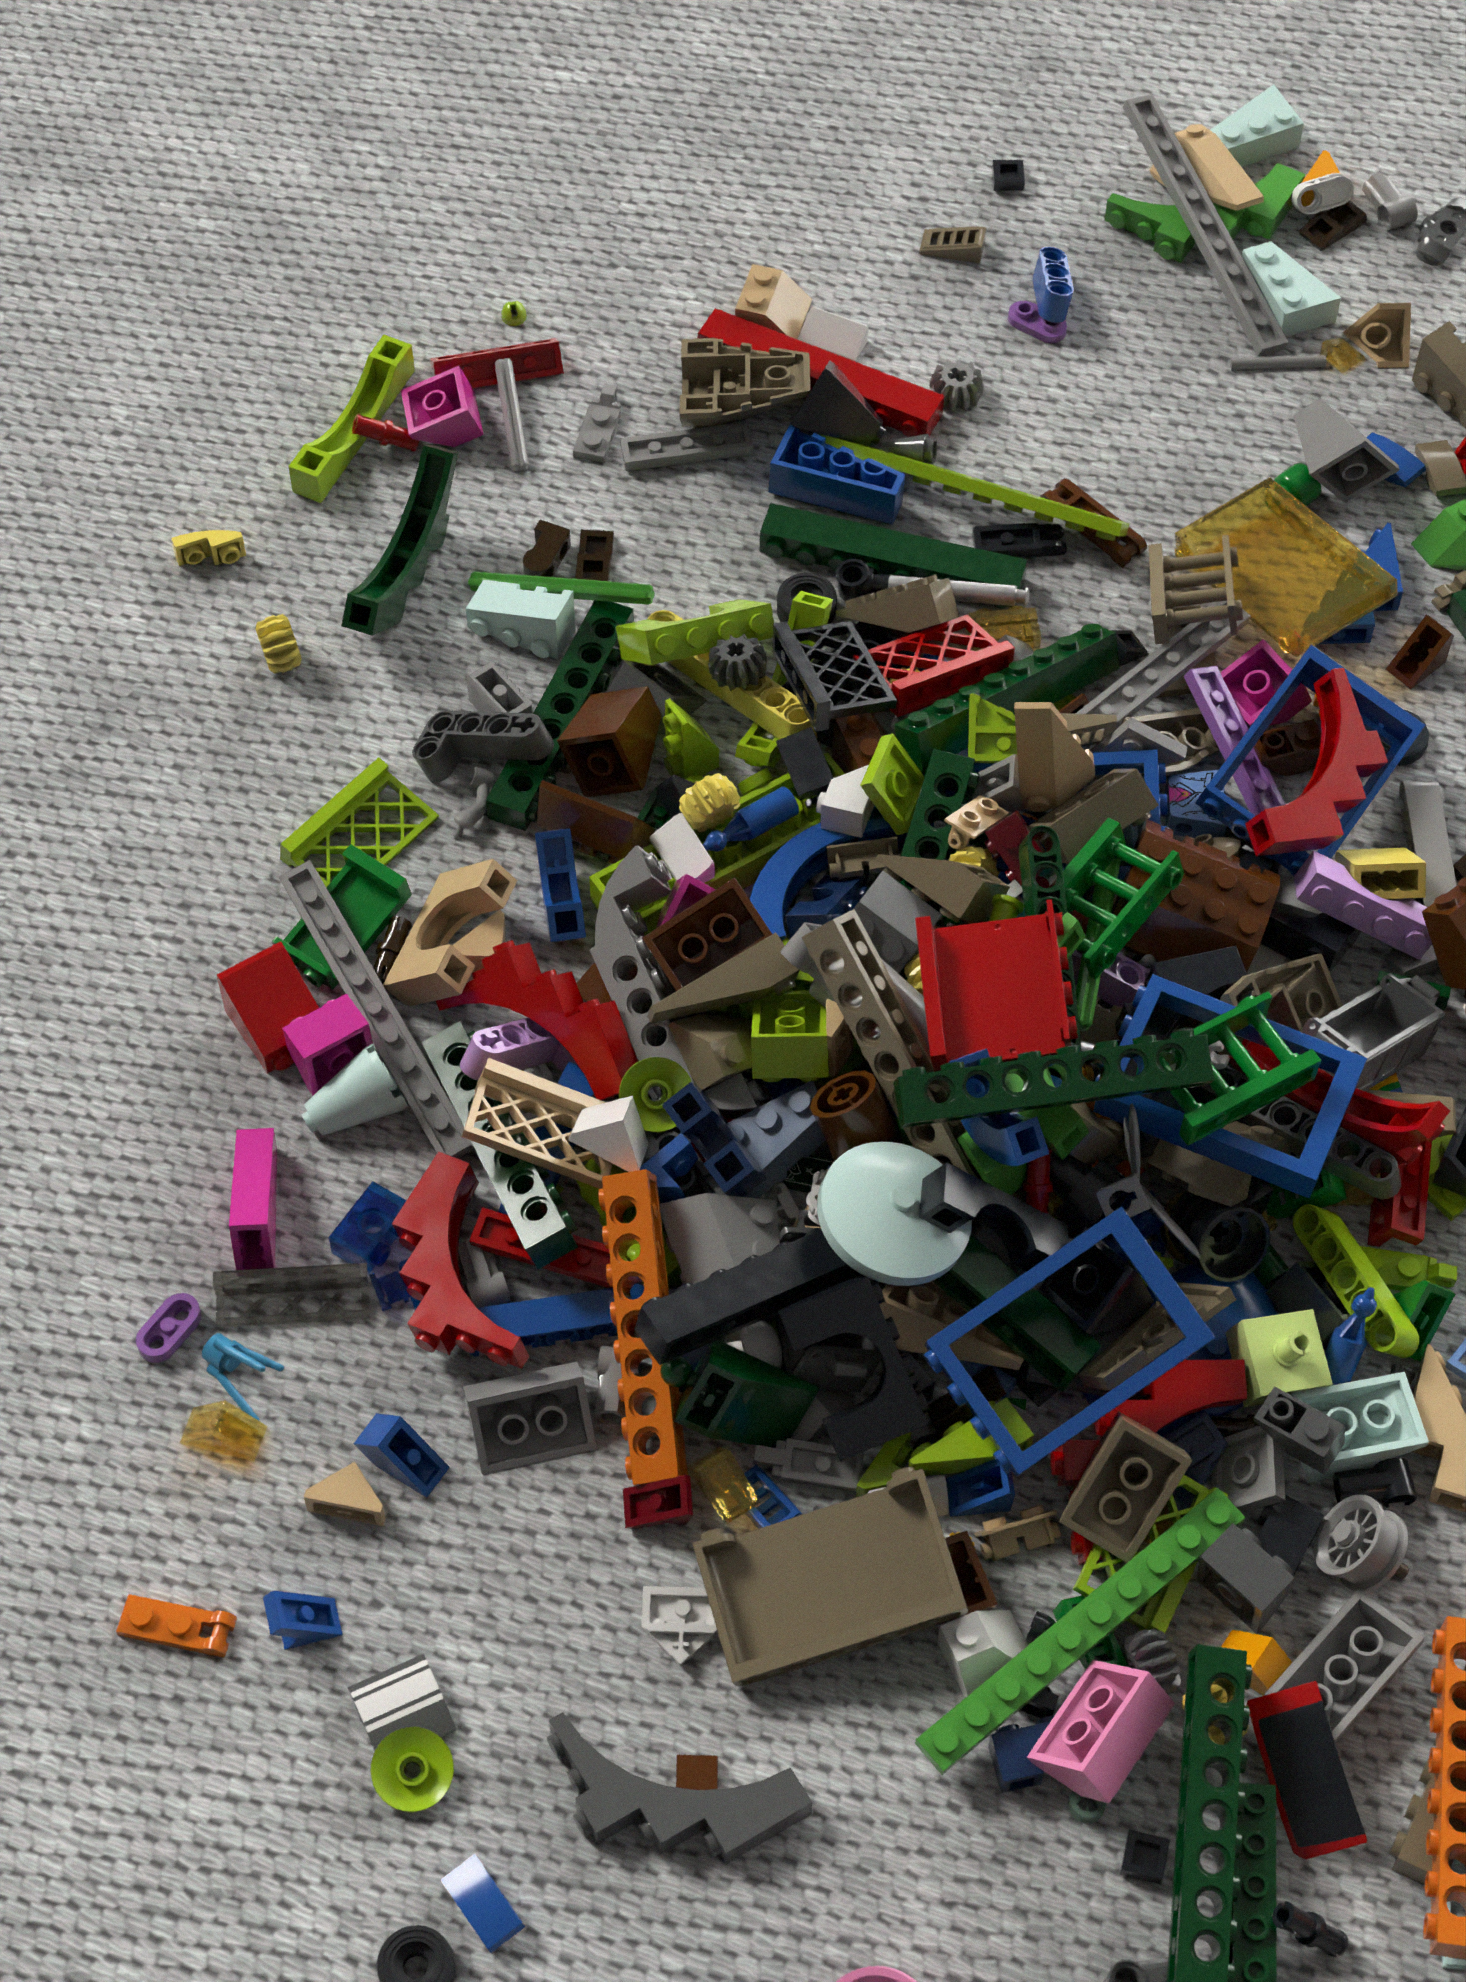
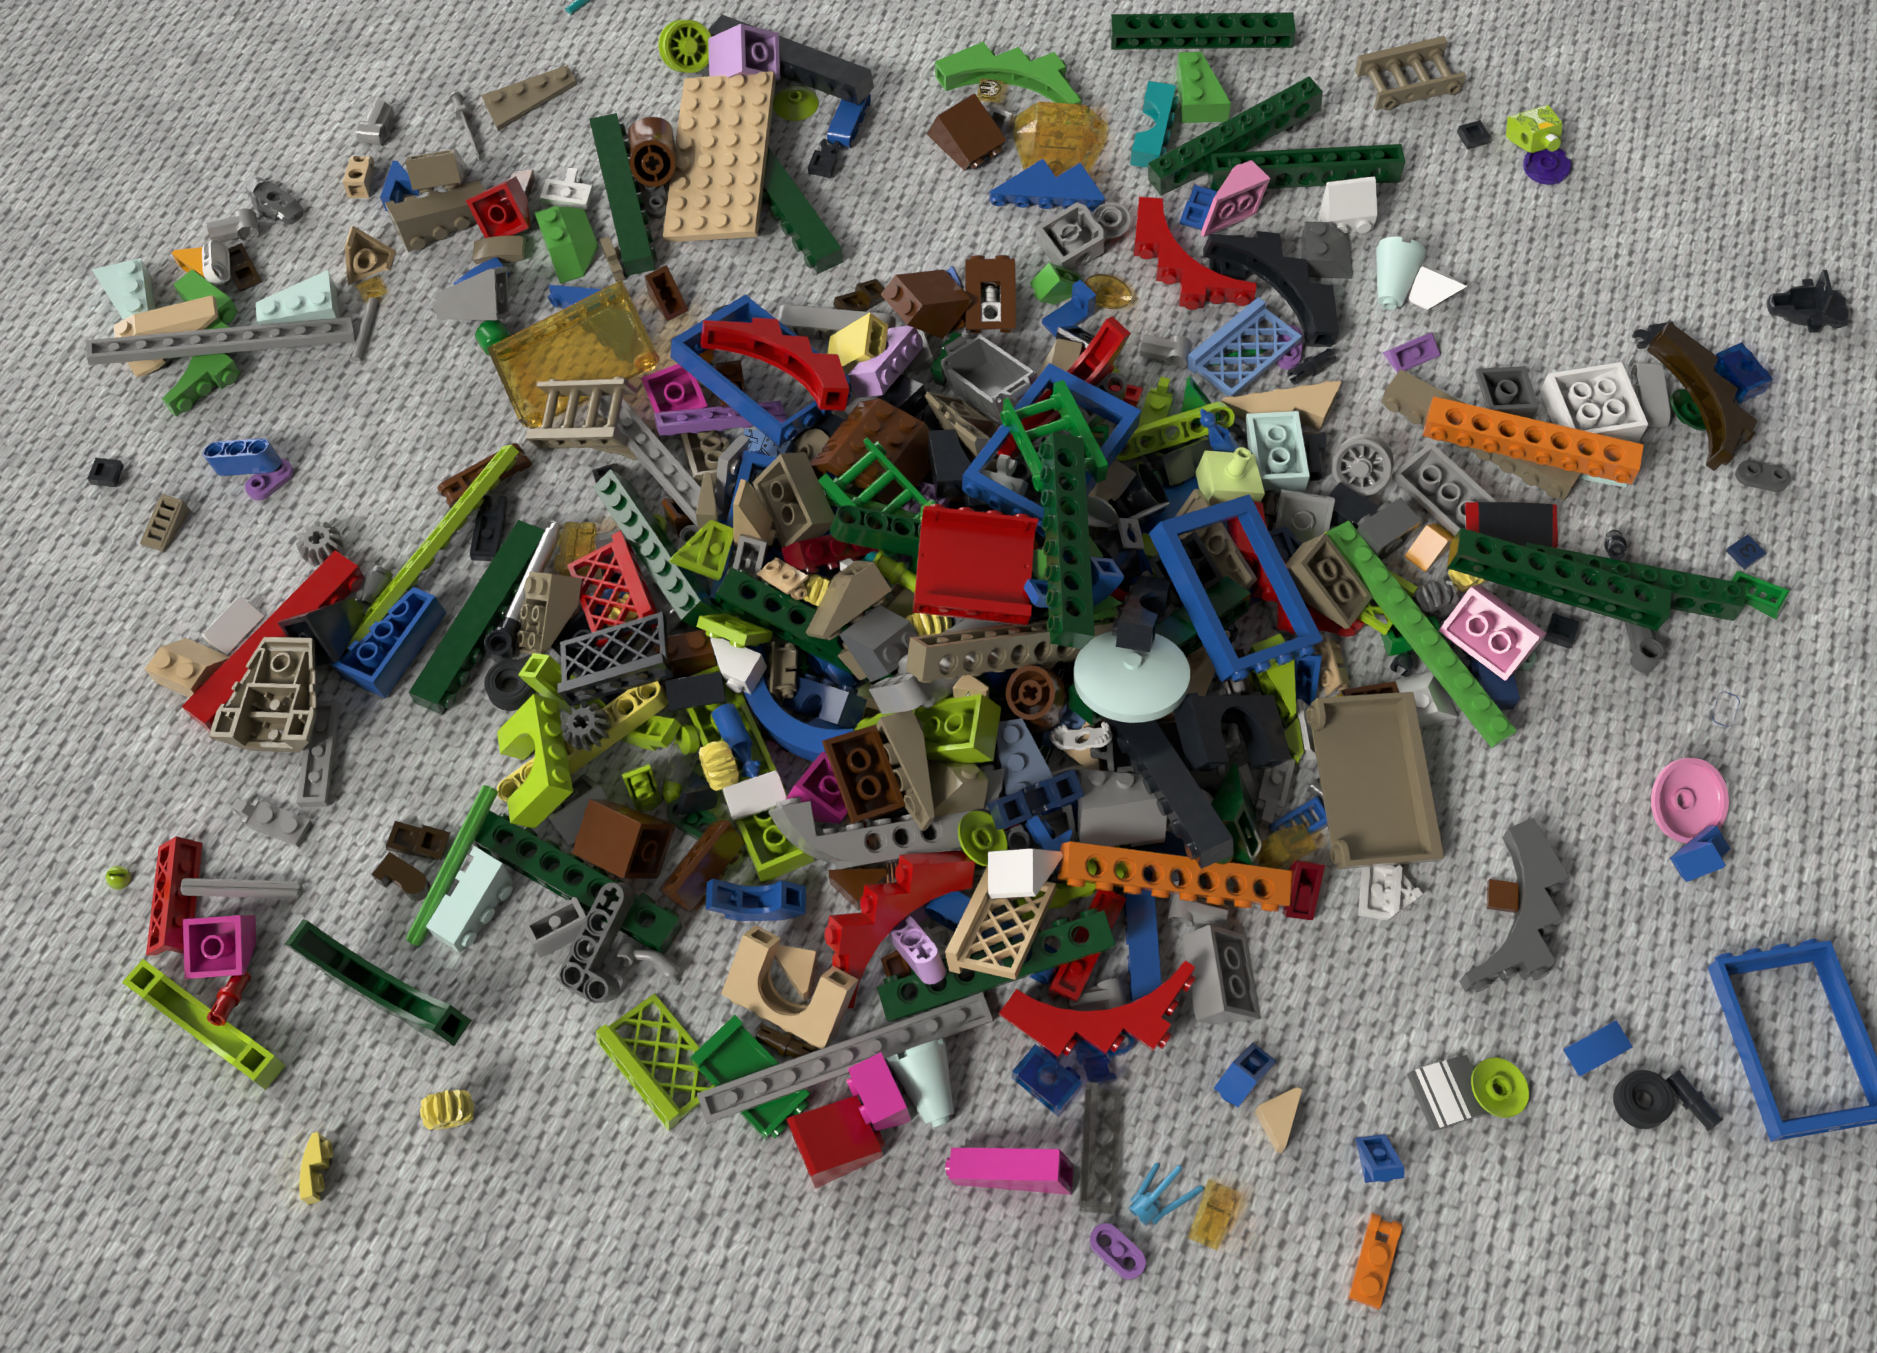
camera: 80 degrees left, 5 degrees up
(1301, 1429) = (1296, 471): dark grey slope -> none

